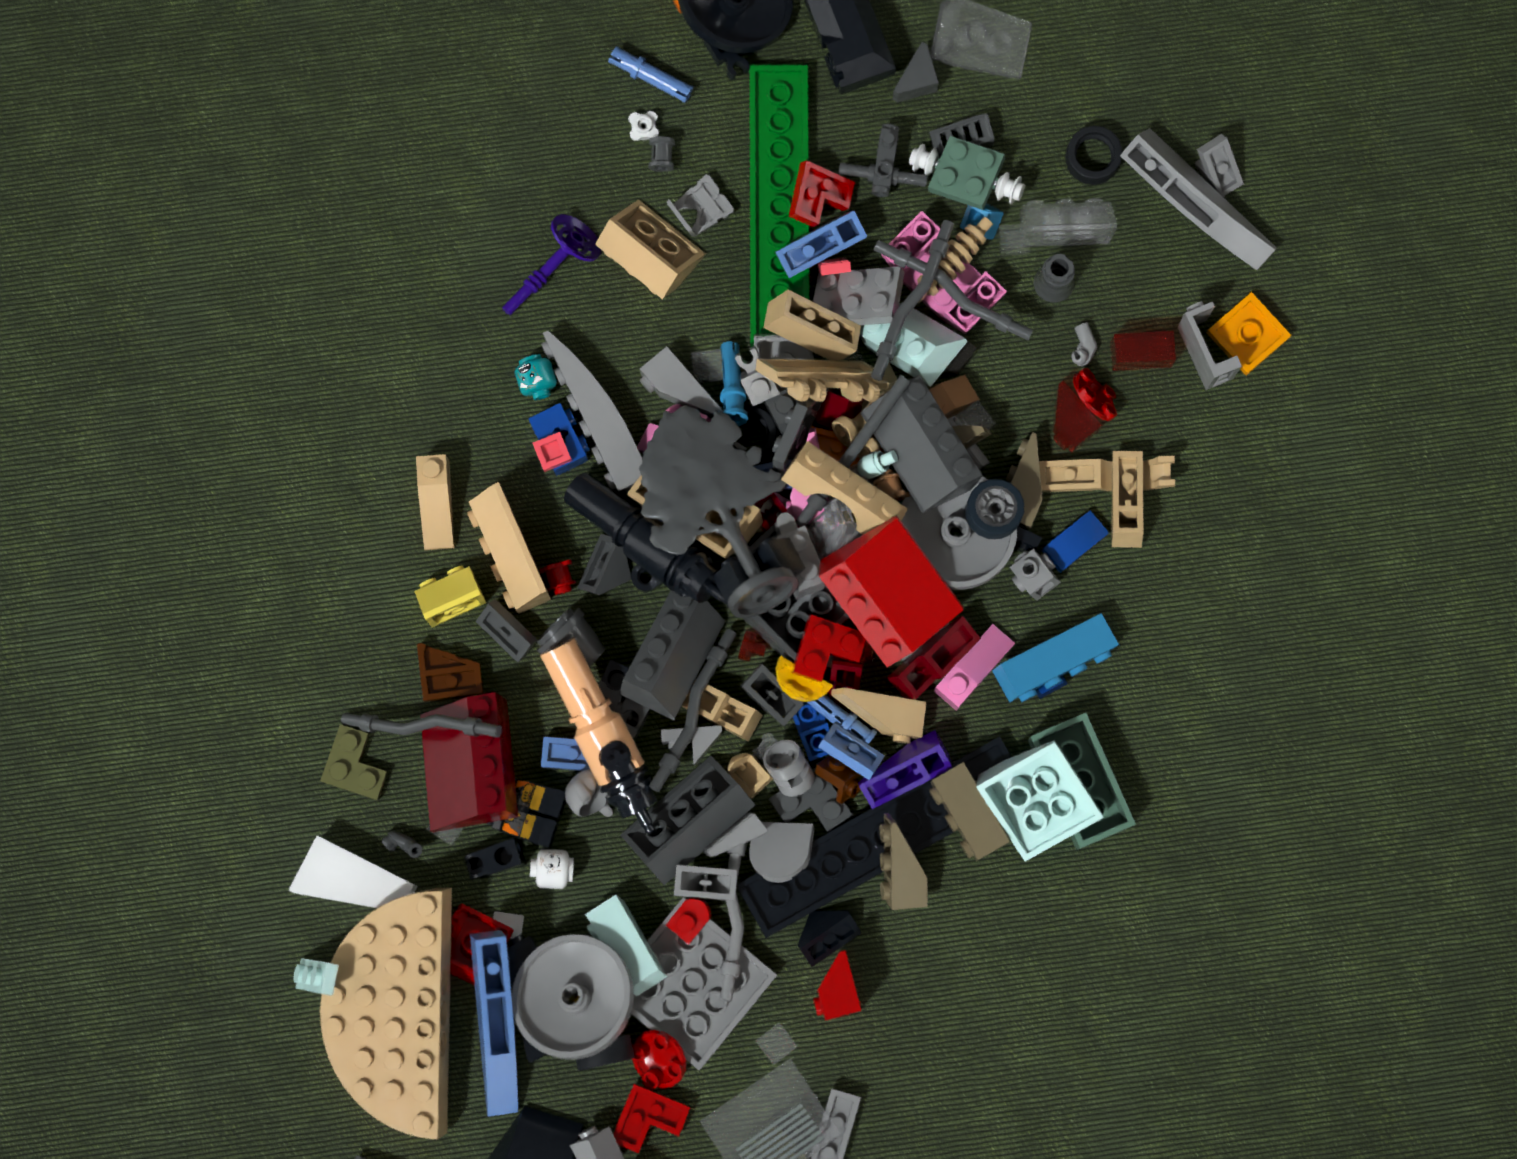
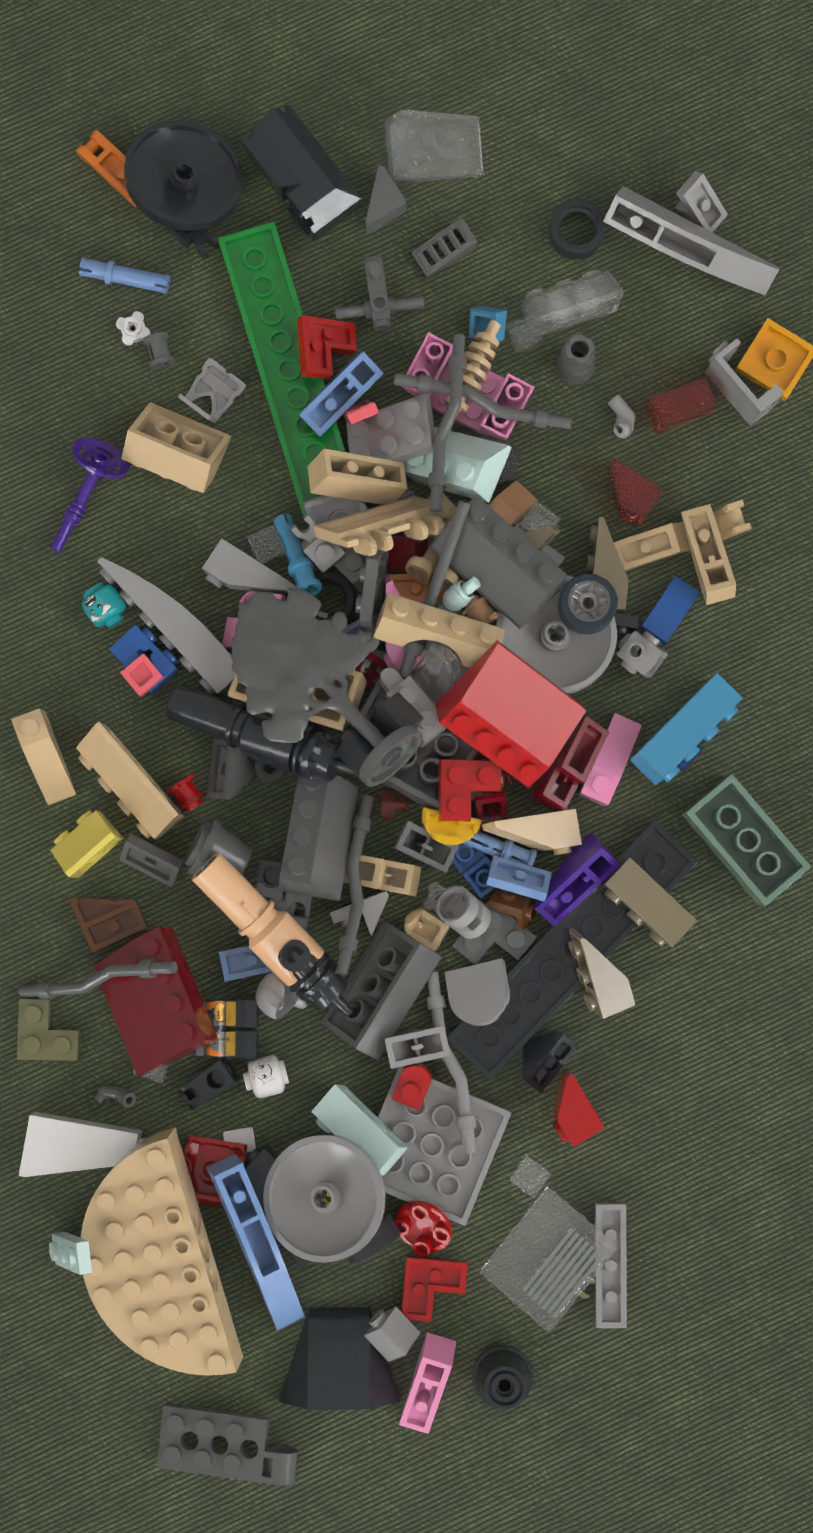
camera: 20 degrees left, 5 degrees up
(742, 831) = (435, 990): light grey slope -> none
(966, 173) = (460, 282): sand green plate -> none
(1038, 799) = (711, 871): light aqua slope -> none
(1094, 395) = (647, 463): red dish -> none

